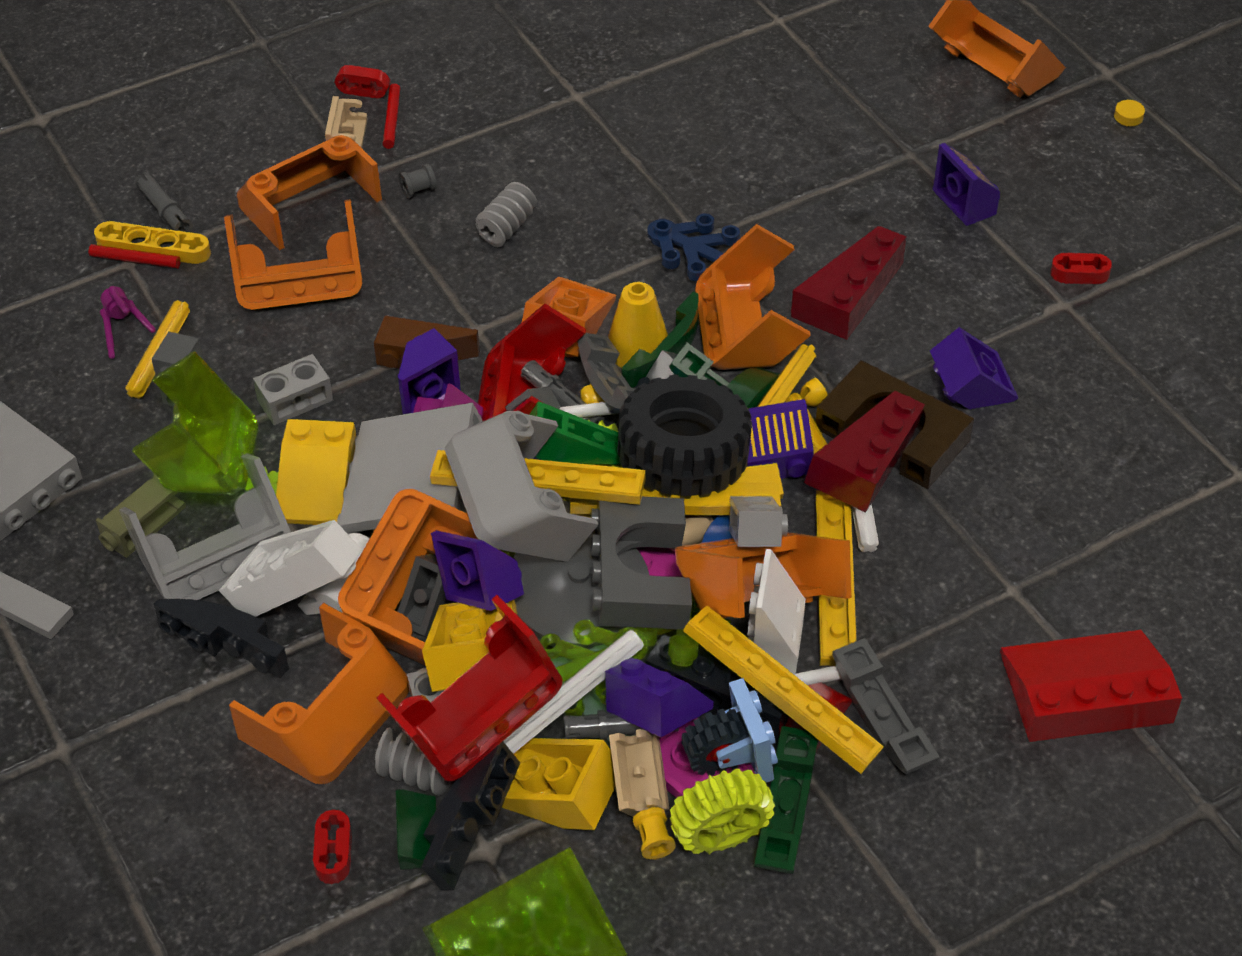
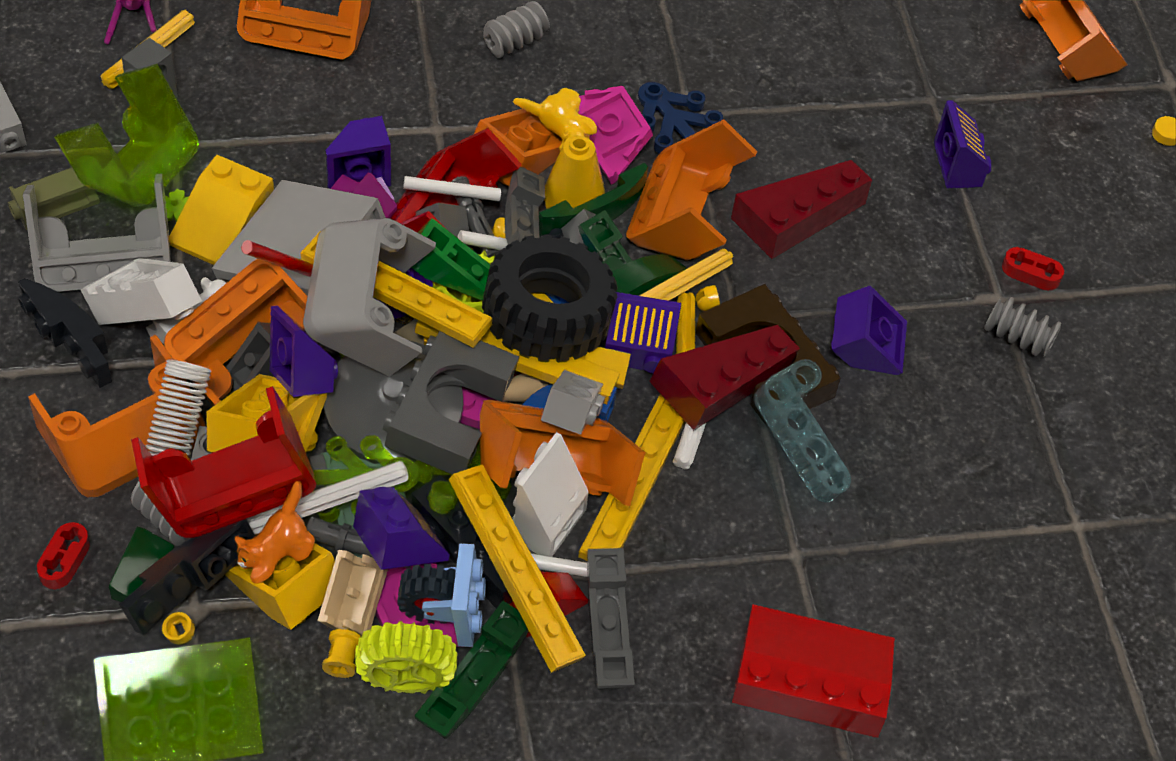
camera: 15 degrees right, 5 degrees up
(293, 389) = (242, 128): light grey brick -> none
(381, 625) = (185, 371): none -> white piece
(396, 332) = (402, 132): reddish brown slope -> none
(419, 484) = (277, 258): none -> red bar
(491, 864) = (171, 632): none -> yellow hinge
(528, 374) = (452, 188): none -> white bar
(547, 744) = (280, 537): none -> orange animal
(594, 275) = (560, 114): none -> yellow animal
(638, 260) = (620, 128): none -> dark pink wing
(966, 477) = (809, 431): none -> clear light blue beam
(1104, 318) = (1022, 326): none -> light grey piece

